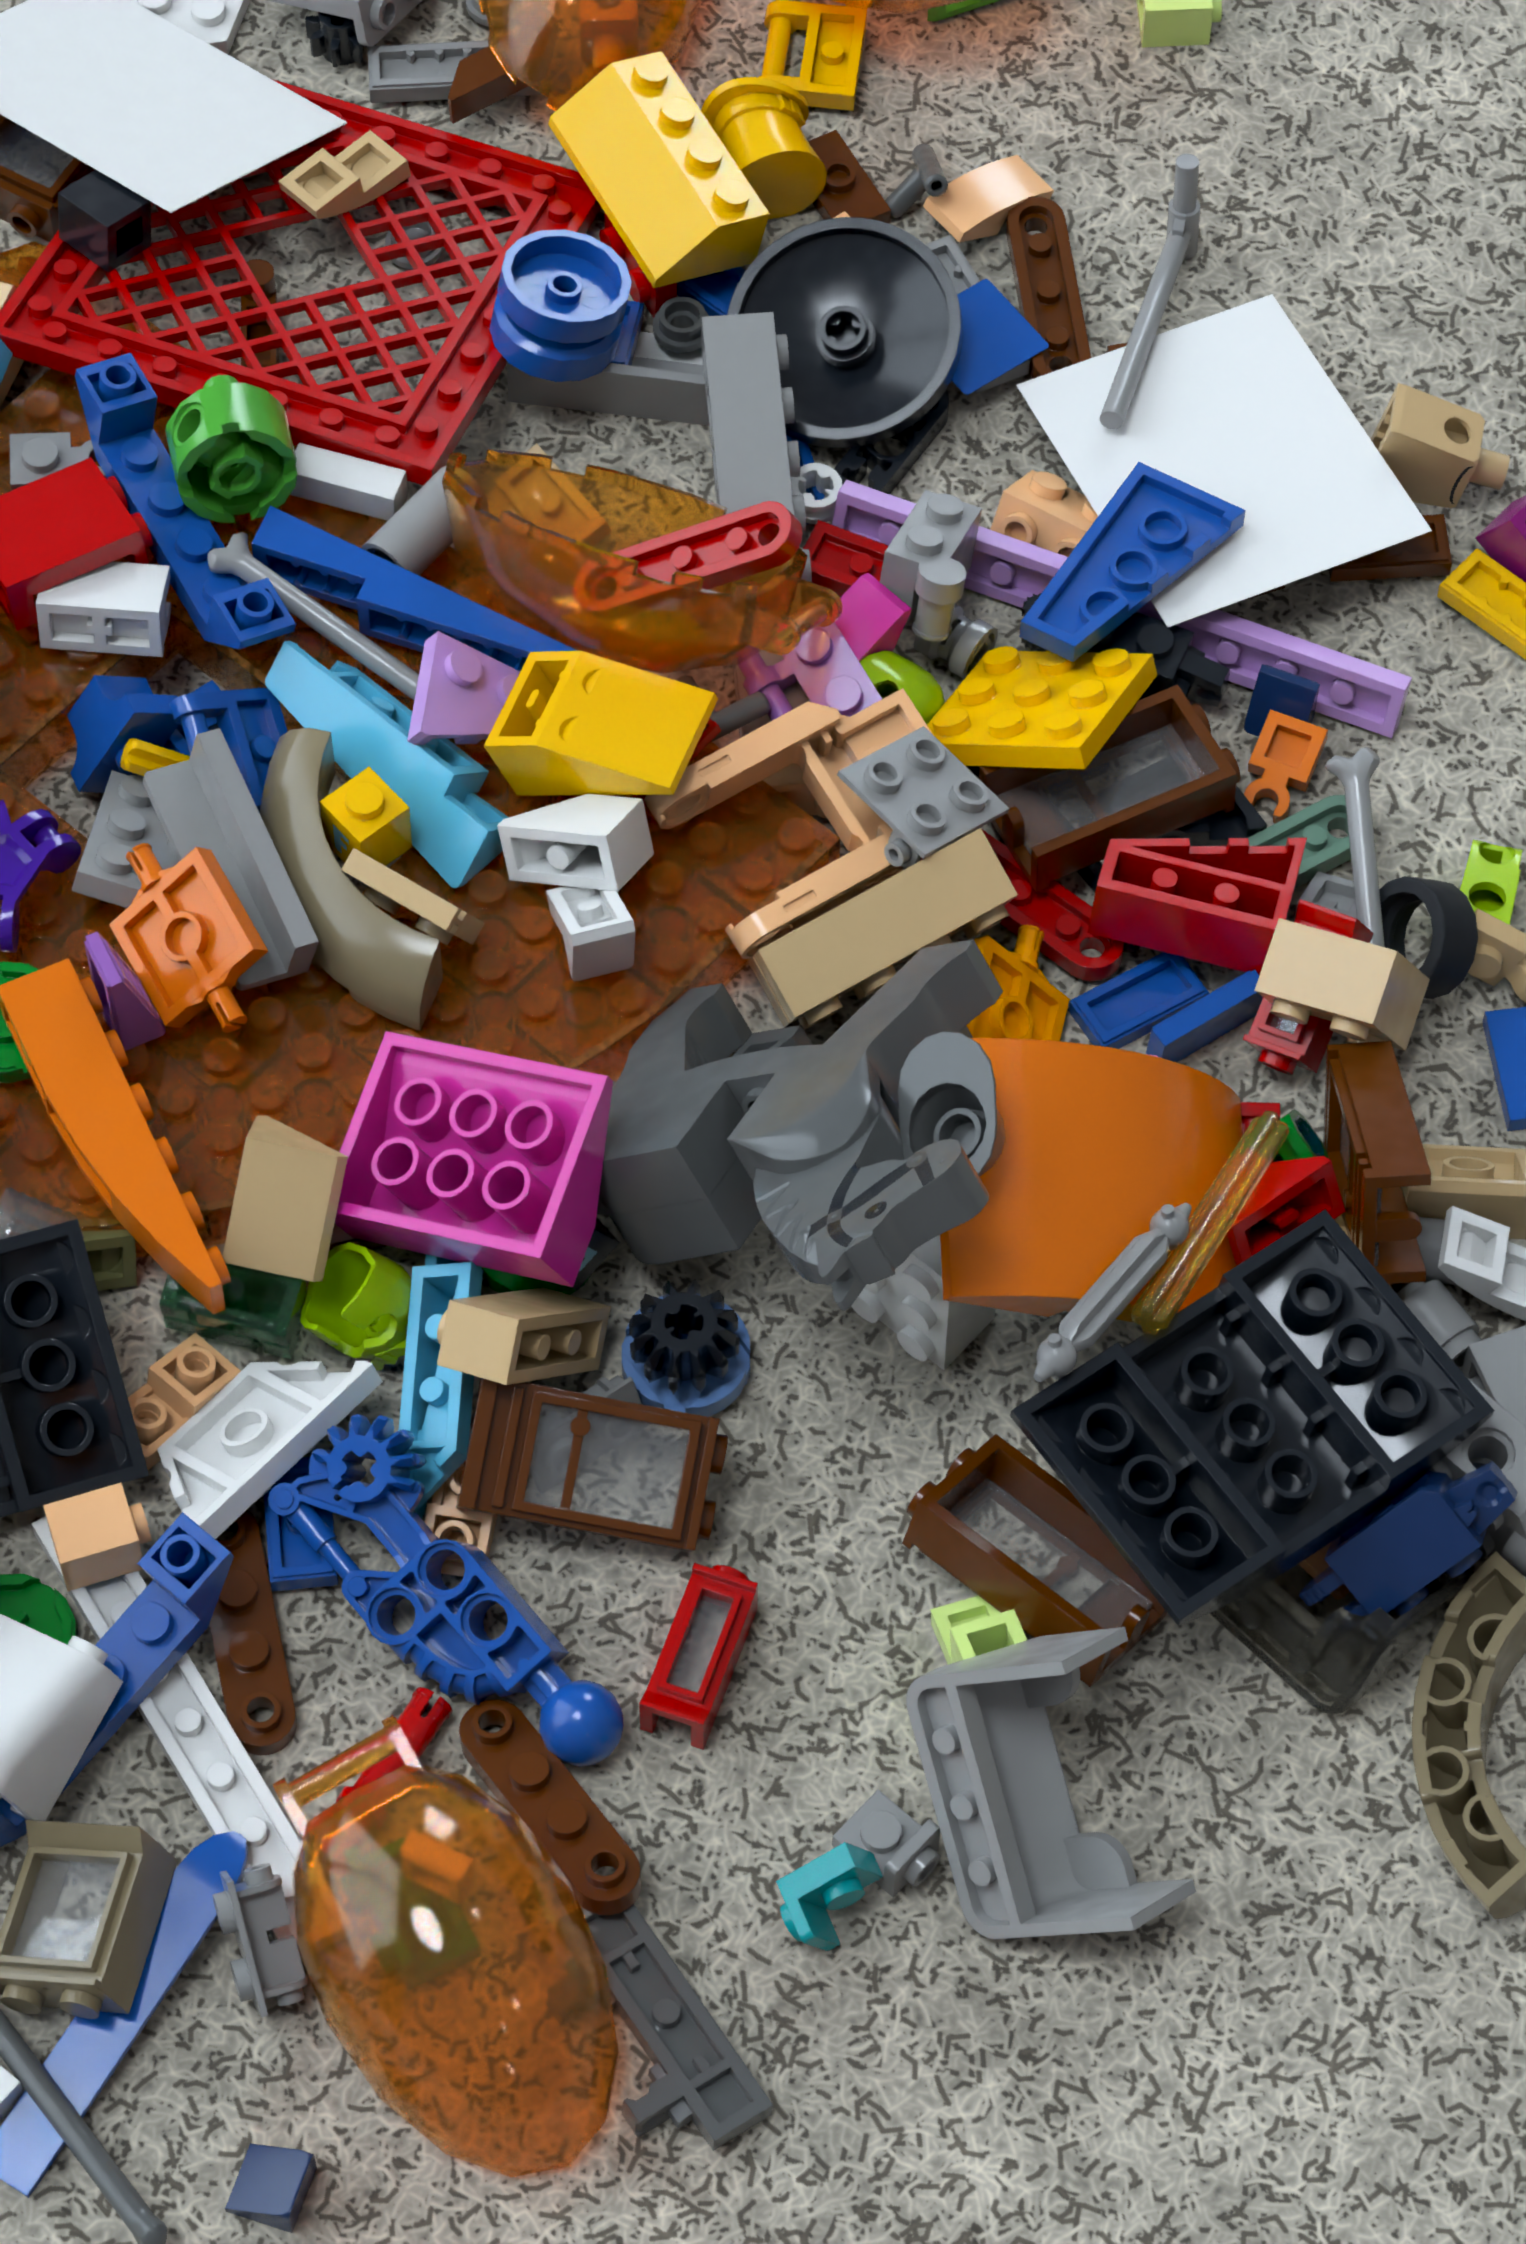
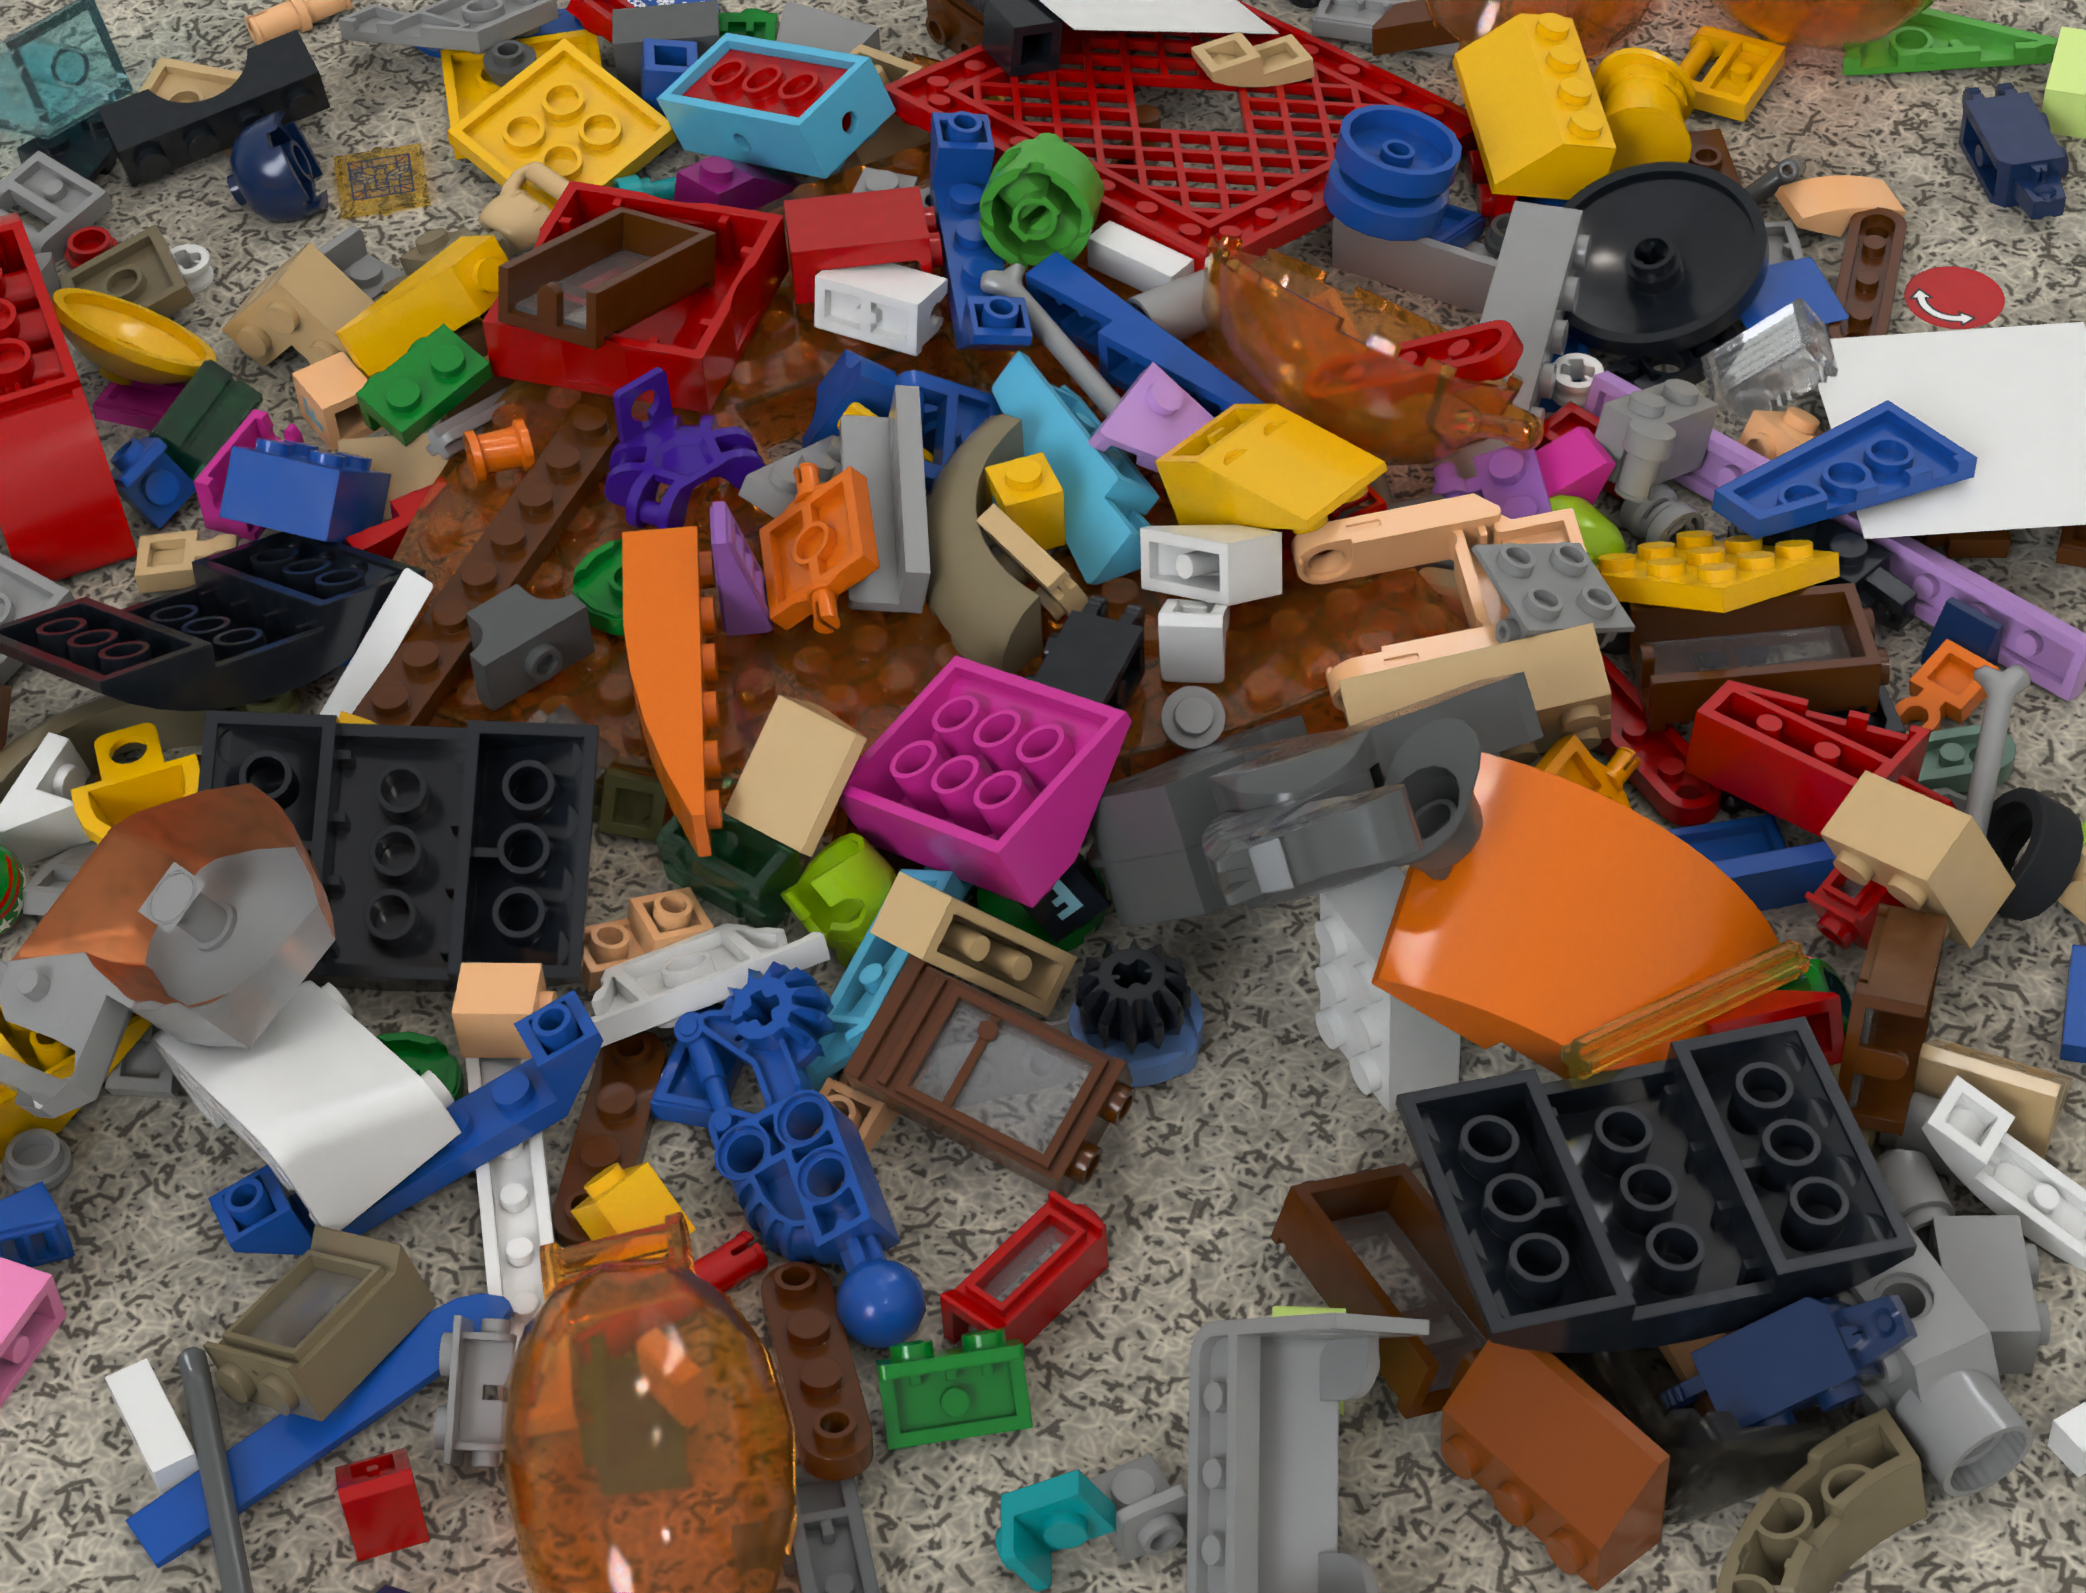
camera: 25 degrees right, 15 degrees down
(209, 2063) = (381, 1504): none -> red slope
(316, 1711) = (625, 1202): none -> yellow brick
(508, 993) = (1096, 654): none -> black hinge
(624, 1020) = (1192, 718): none -> light grey plate
(684, 1789) = (953, 1391): none -> green bracket
(999, 431) = (1770, 363): none -> clear brick
(1112, 1292) = (1546, 1022): light grey wheel -> none
(1119, 276) = (1954, 297): none -> red sticker
(1132, 87) = (2013, 151): none -> dark blue hinge
(1179, 245) = (2010, 273): light grey bar -> none
(1236, 1690) = (1557, 1460): none -> dark orange slope

